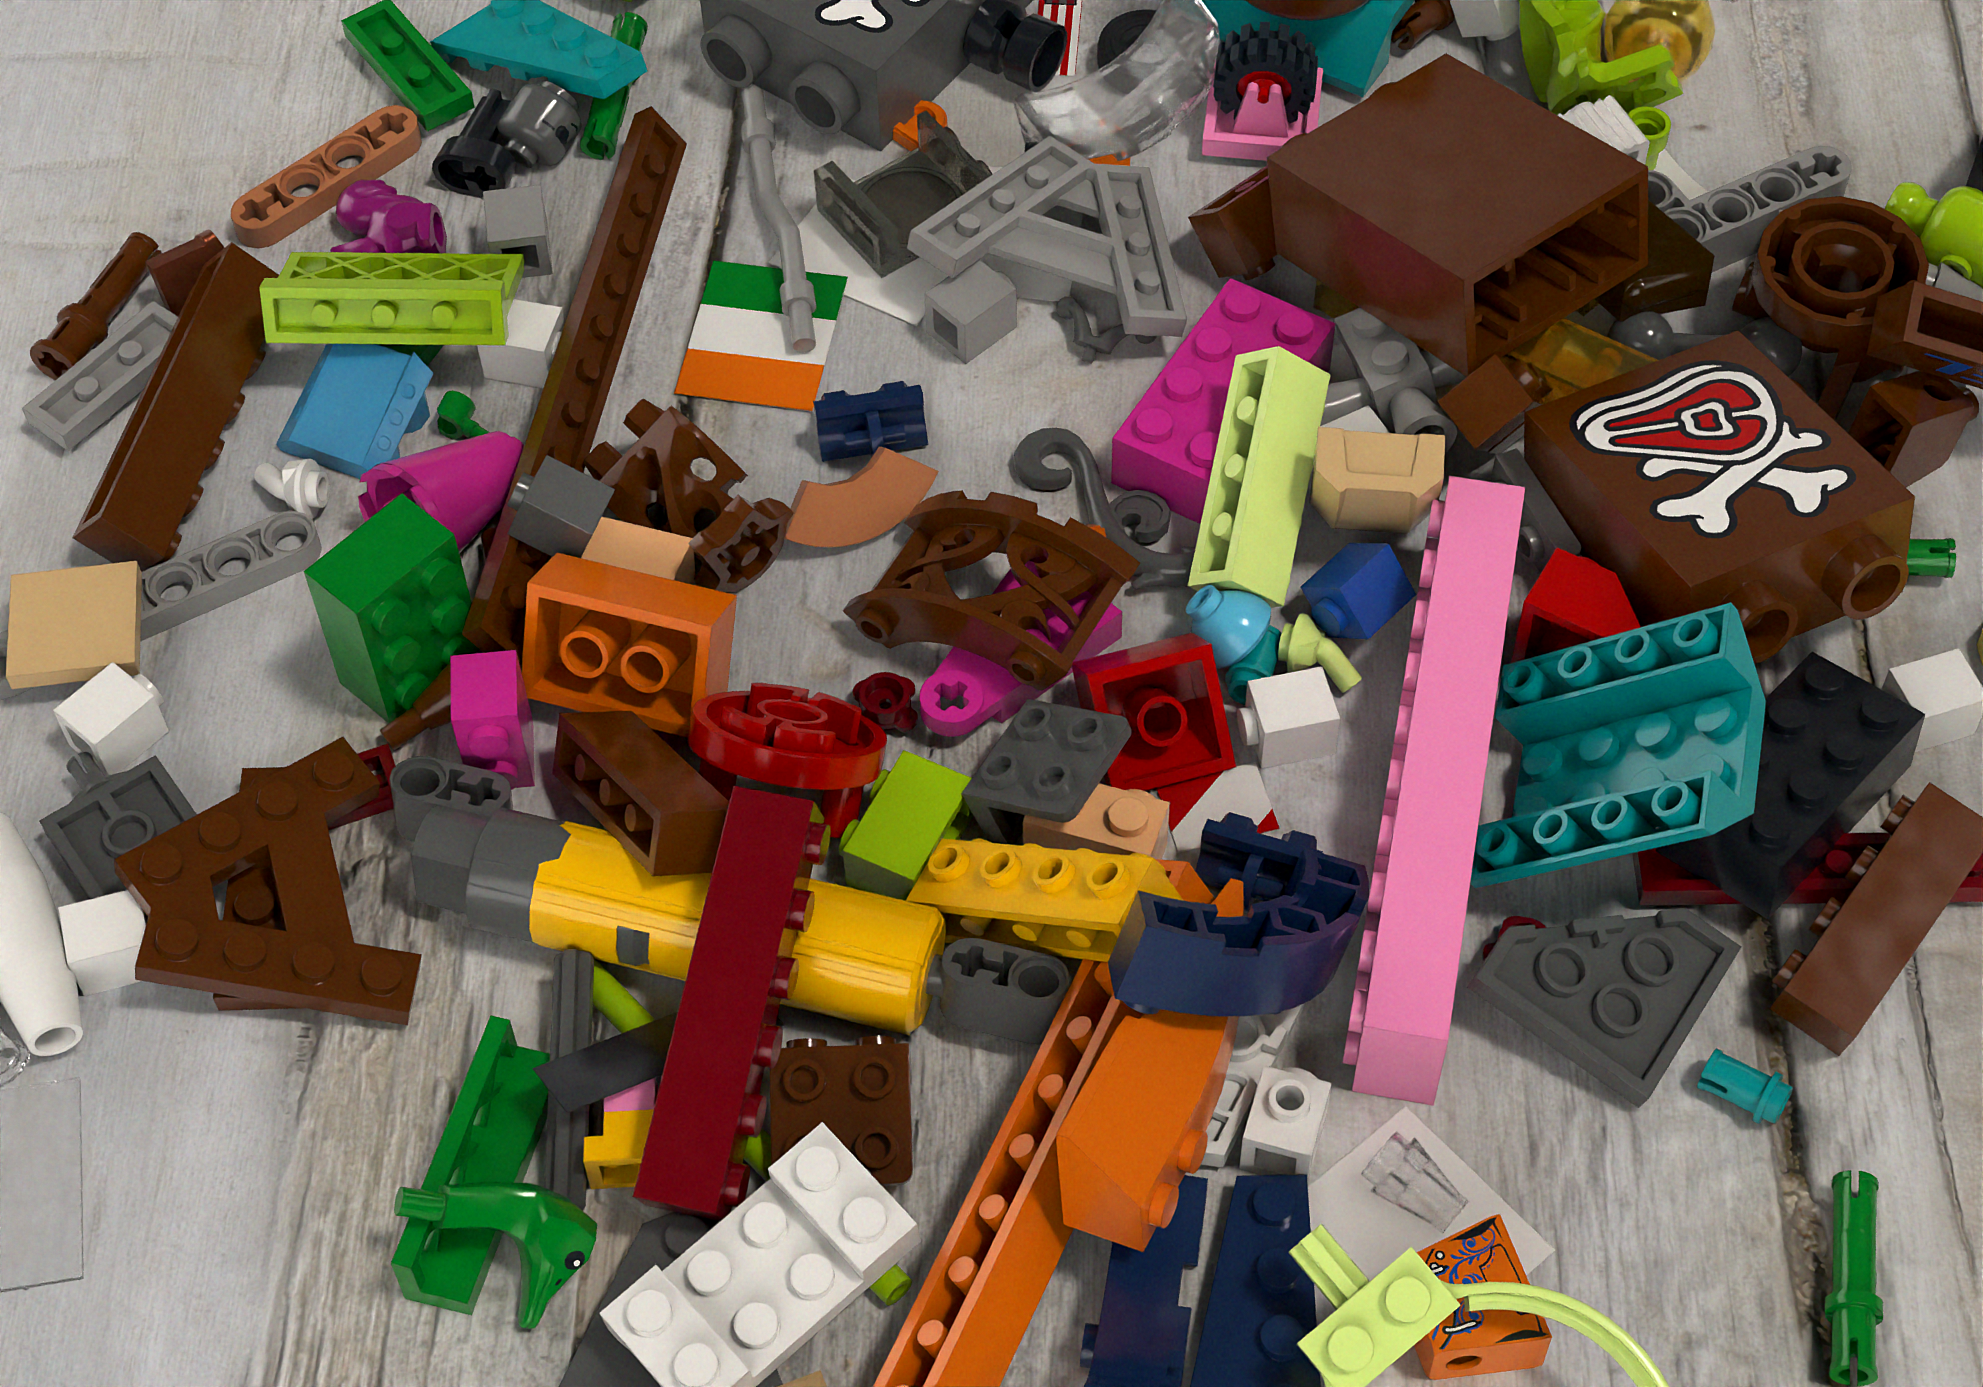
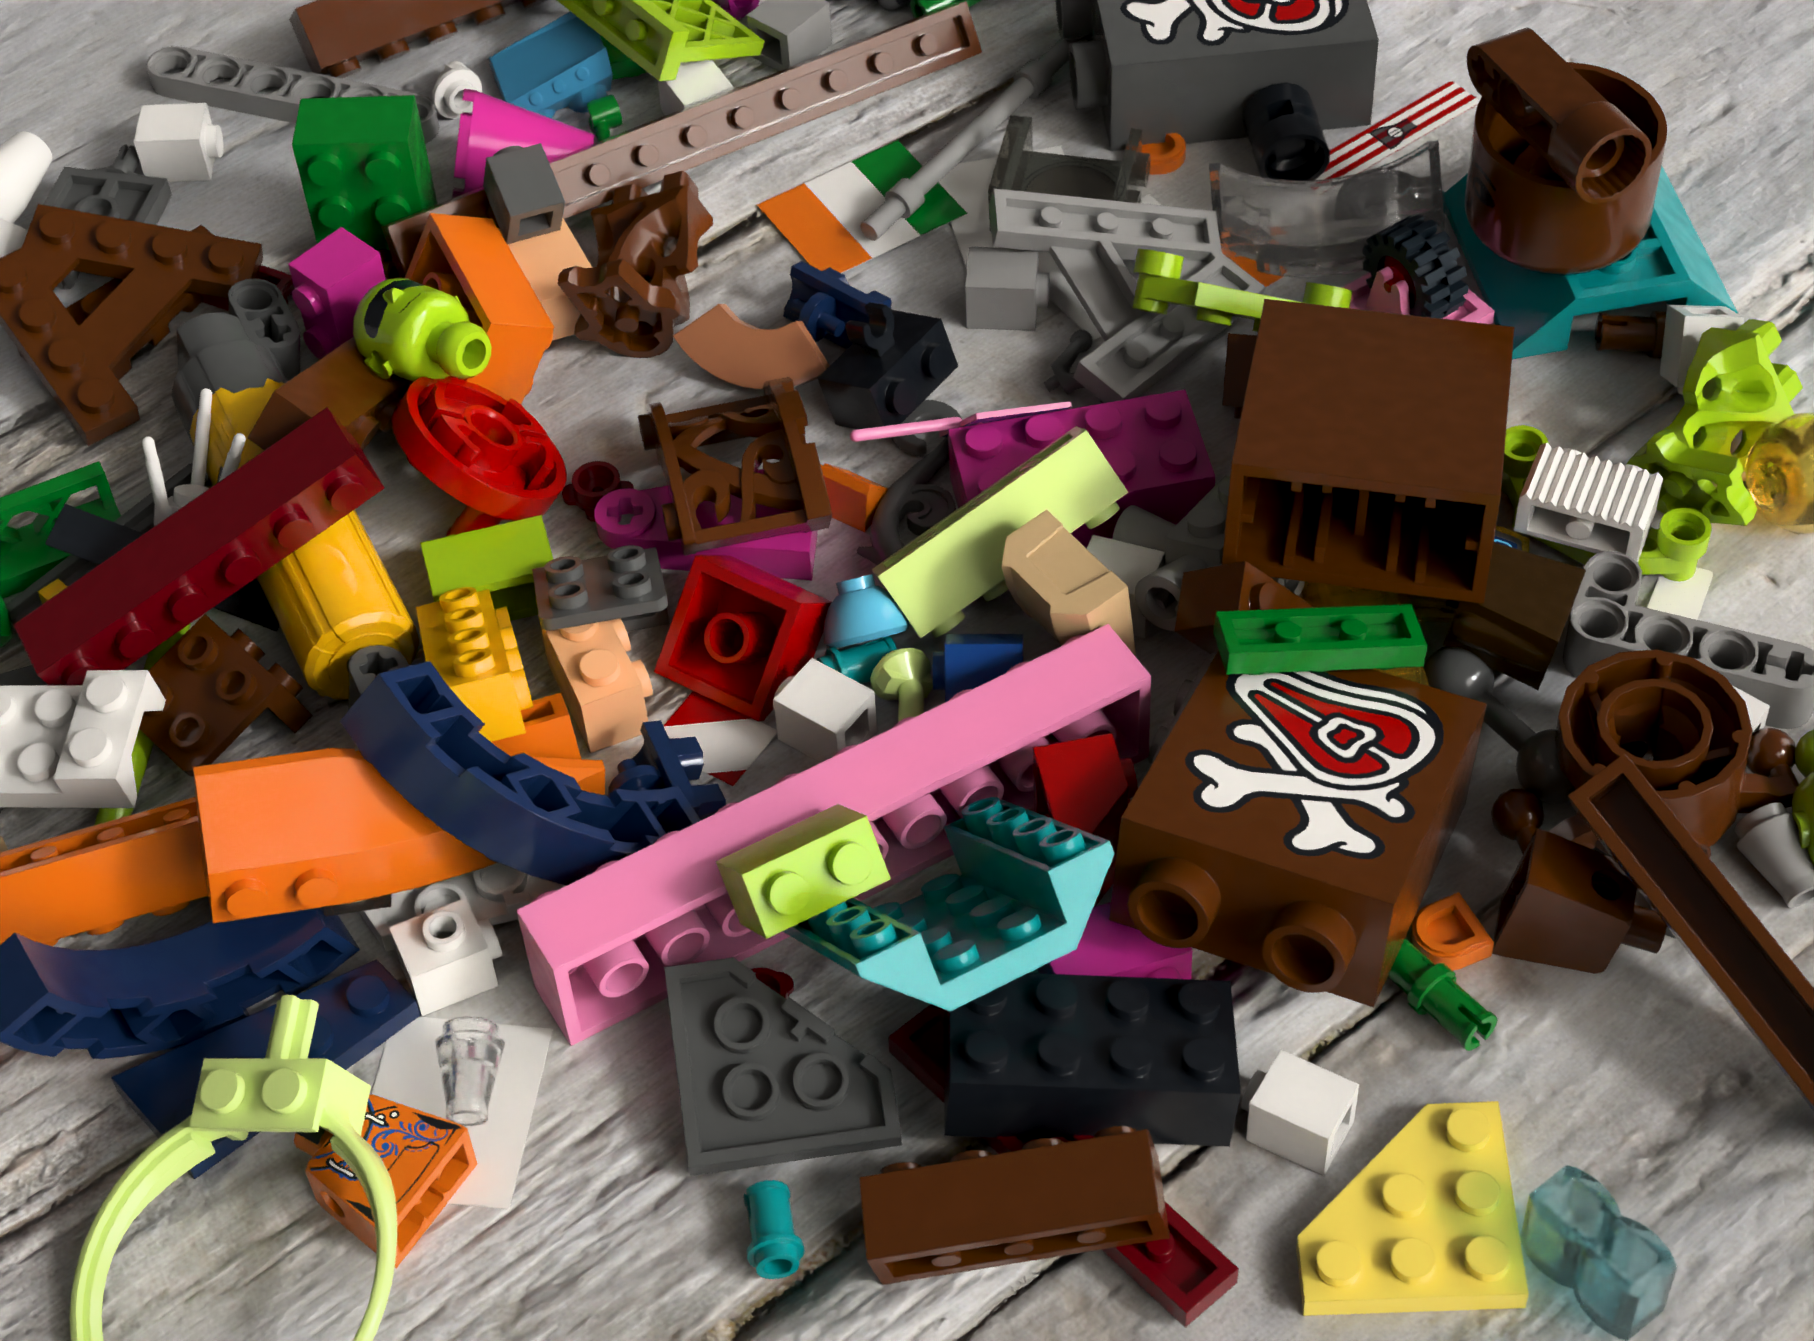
camera: 50 degrees right, 5 degrees down
(73, 624) = (226, 69): tan tile -> none
(621, 982) = (186, 493): none -> white plant
(653, 684) = (418, 333): none -> lime piece
(987, 432) = (887, 368): none -> black brick
(1115, 411) = (953, 422): none -> bright pink piece
(1213, 177) = (1161, 285): none -> lime plate
(1519, 814) = (803, 870): none -> lime brick
(1605, 369) = (1319, 639): none -> green plate

